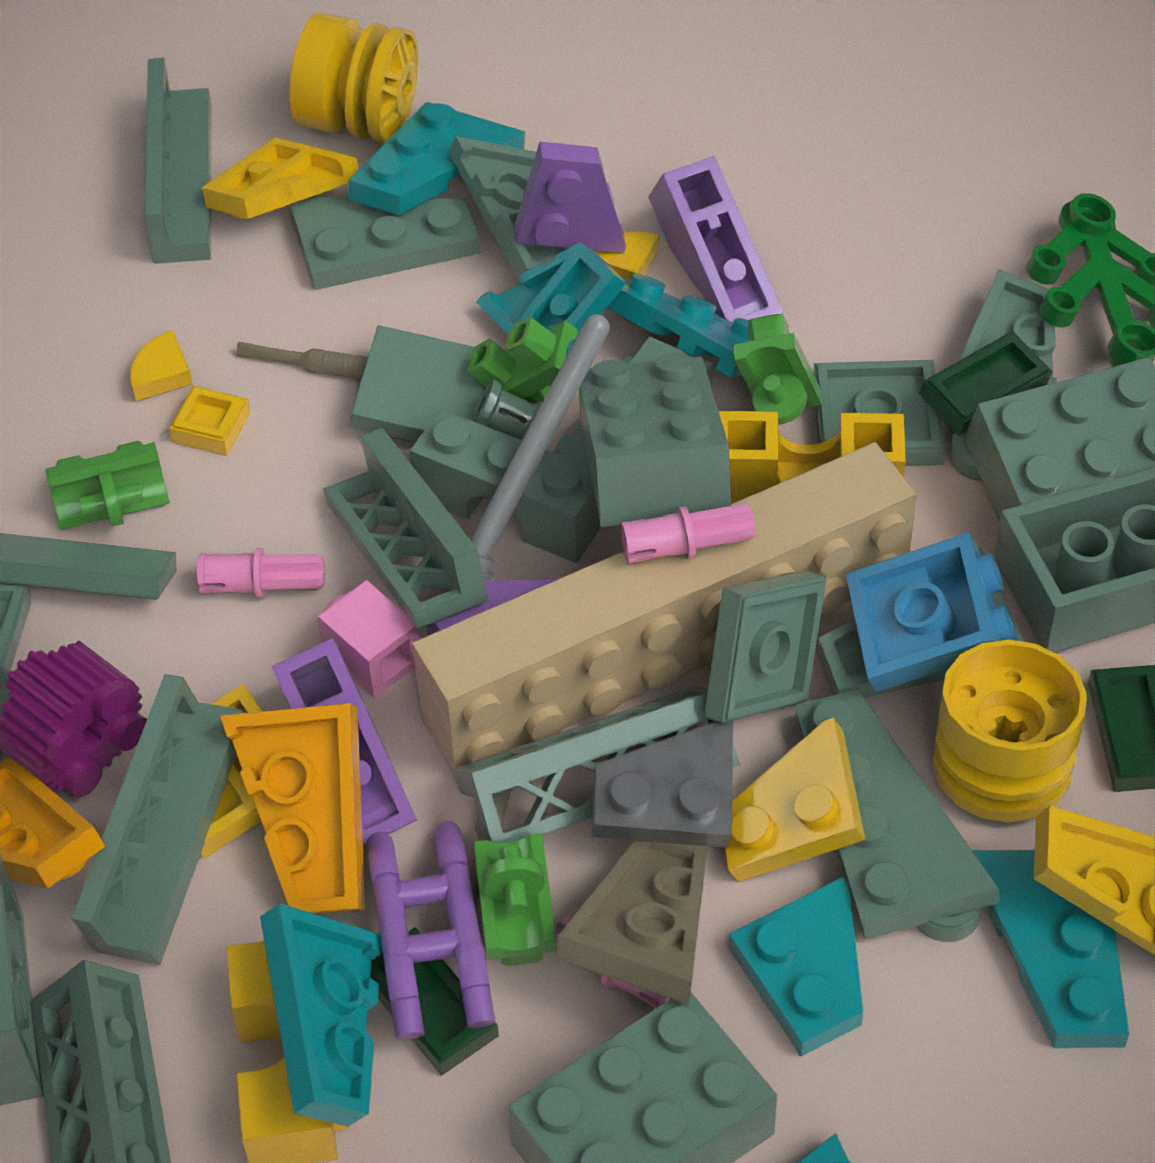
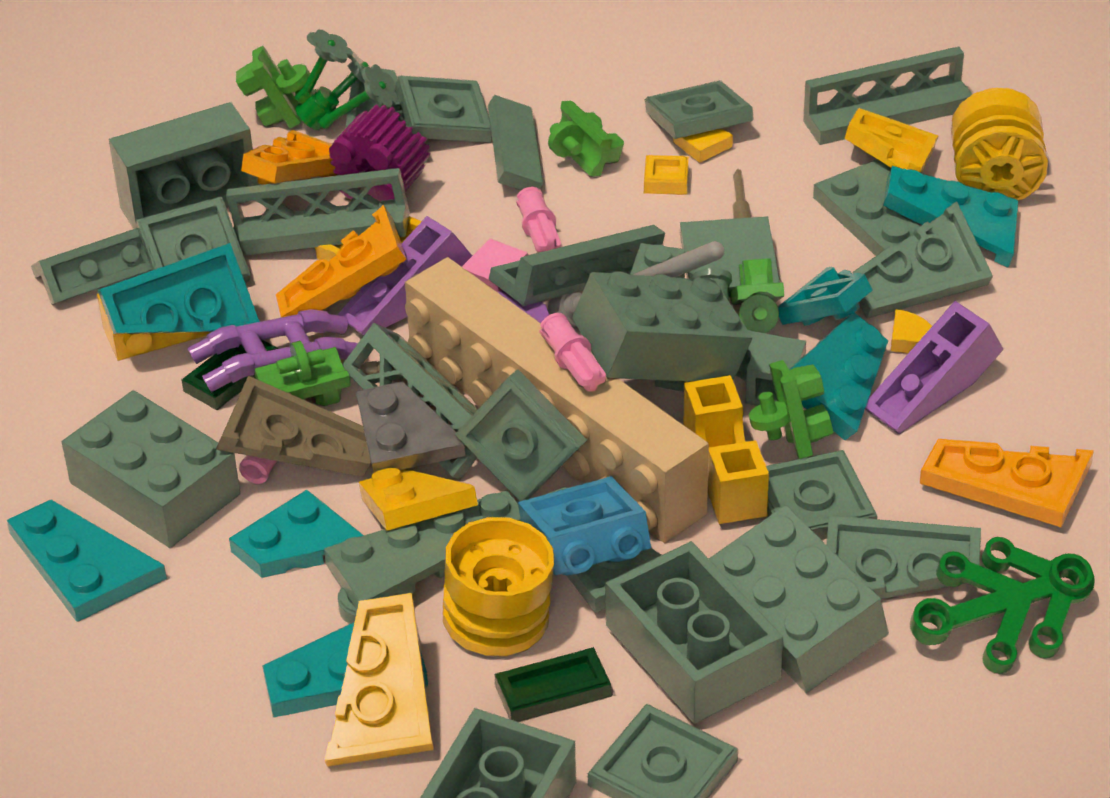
camera: 75 degrees right, 10 degrees down
(102, 352) = (698, 109): none -> sand green tile
(162, 1002) = (189, 232): none -> sand green tile
(568, 201) = (901, 261): medium lavender wing -> none
(903, 232) = (1018, 482): none -> light orange wing
(985, 375) = (851, 534): dark green tile -> none

